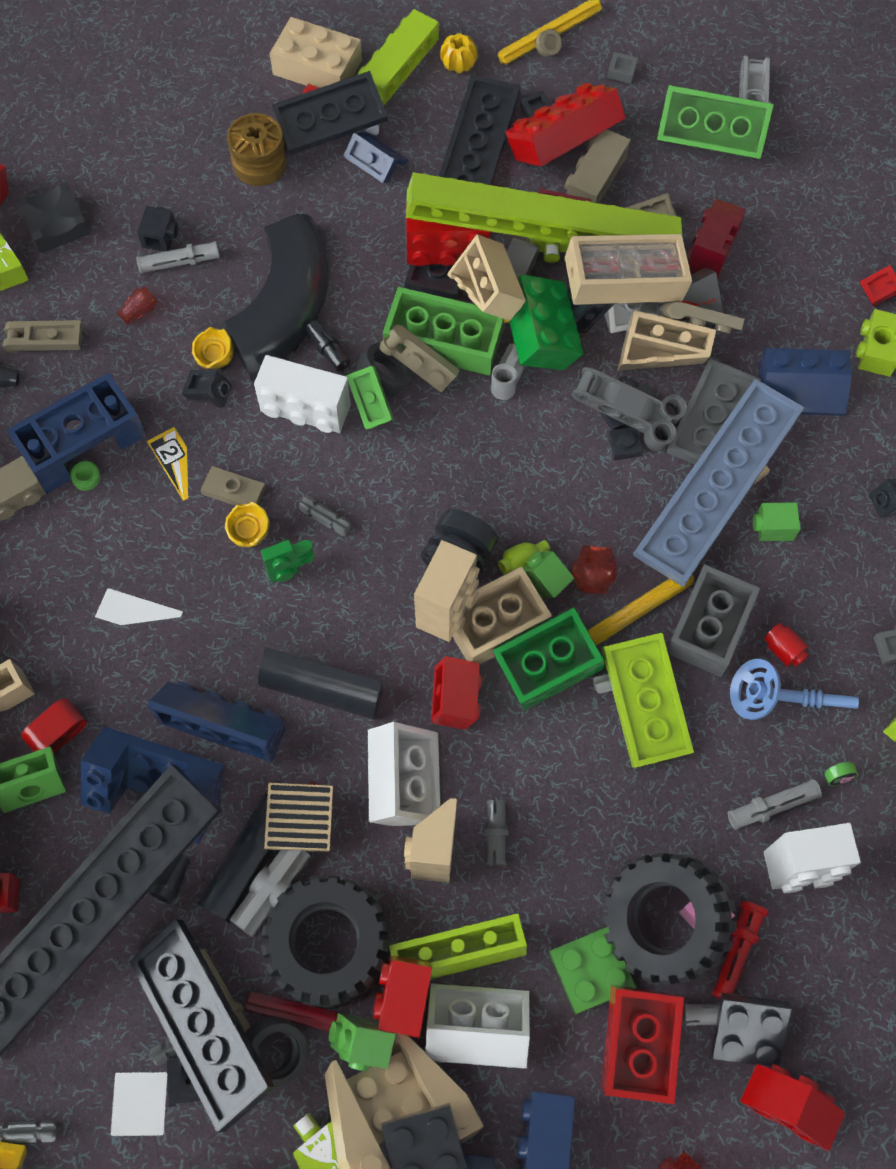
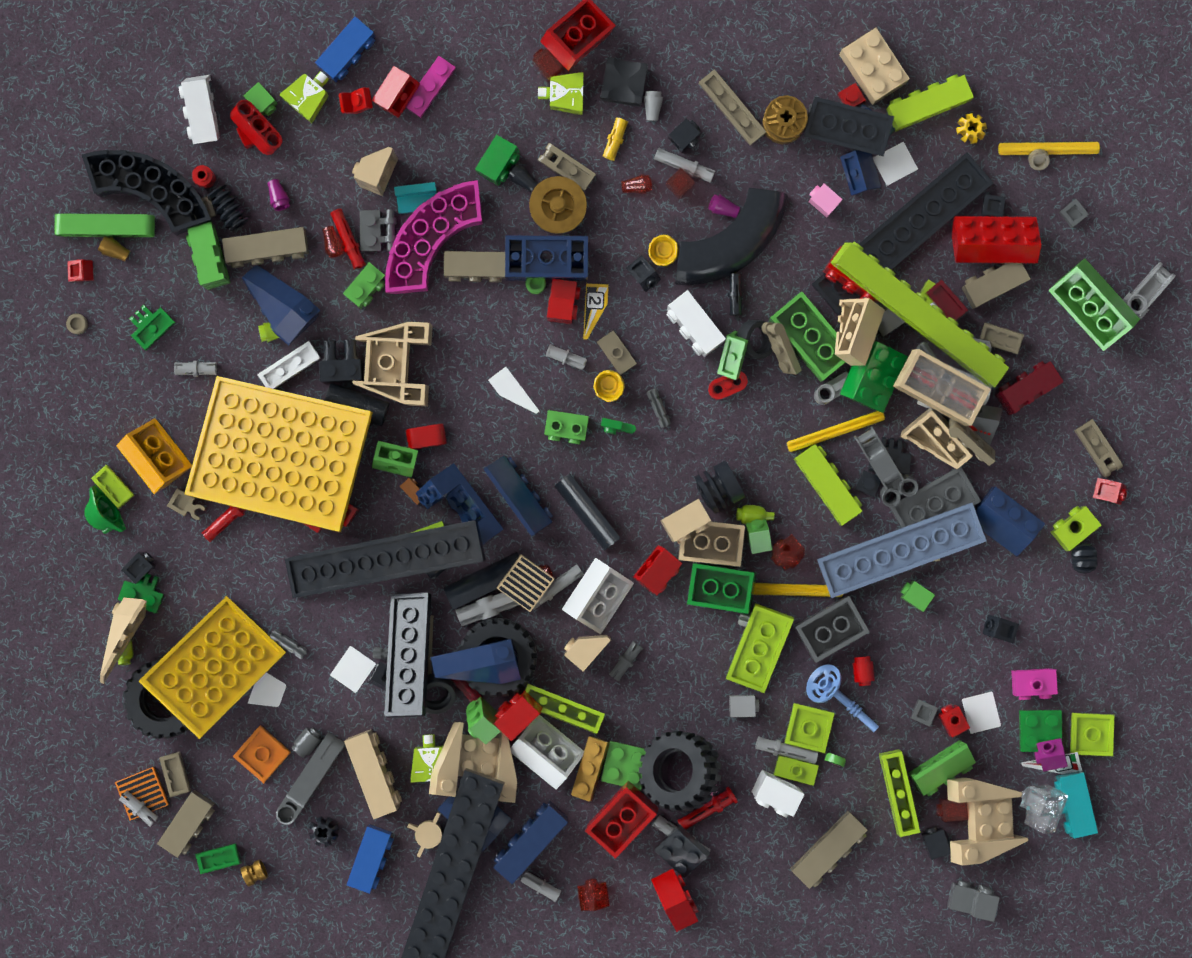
camera: 35 degrees right, 20 degrees up
(53, 371) = (557, 204): none -> pearl gold wheel
(70, 806) = (410, 488): none -> dark orange piece
(81, 278) = (615, 139): none -> yellow pin
(100, 220) = (652, 104): none -> light grey cone
(130, 470) = (562, 301): none -> red brick
(174, 529) = (566, 357): none -> light grey axle
(185, 274) = (680, 183): none -> clear red brick
(192, 176) = (732, 107): none -> dark tan plate
(226, 603) = (566, 426): none -> bright green brick
(249, 270) = (723, 206): none -> magenta cone
(312, 952) = (483, 663): none -> dark blue wedge
(345, 796) = (559, 584): none -> light grey pin
(357, 197) = (824, 199): none -> bright pink brick
(386, 442) = (727, 386): none -> red plate
(406, 132) = (895, 163): none -> white sticker
(543, 415) = (835, 431): none -> yellow axle
(551, 1007) = (590, 768): none -> pearl gold plate
(581, 470) = (828, 485): none -> lime brick
(680, 786) = (743, 705): none -> light grey brick
(779, 757) = (809, 728): none -> lime plate
(807, 816) = (796, 770): none -> lime plate
(835, 254) = (1098, 447): none -> dark tan plate

